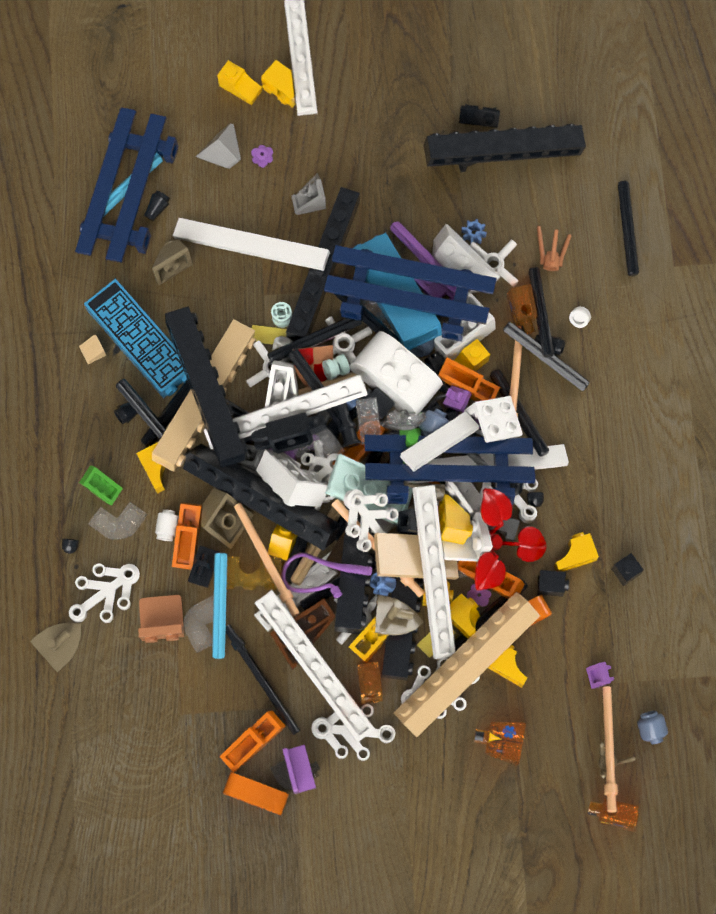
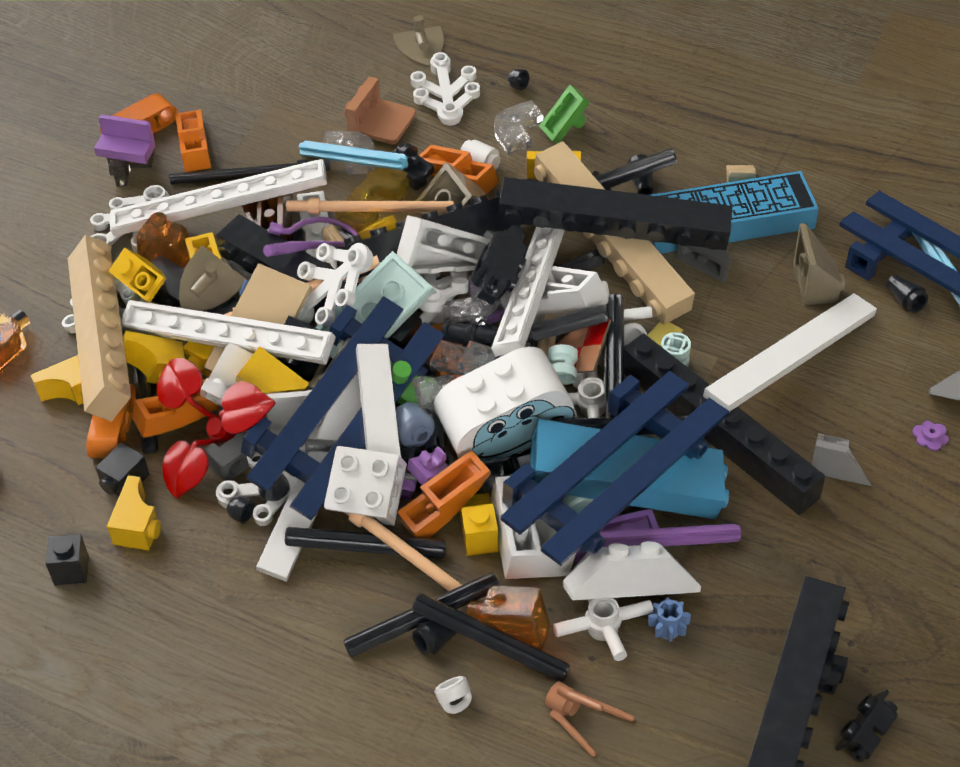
camera: 120 degrees right, 25 degrees down
(416, 660) = (138, 274): none -> yellow slope

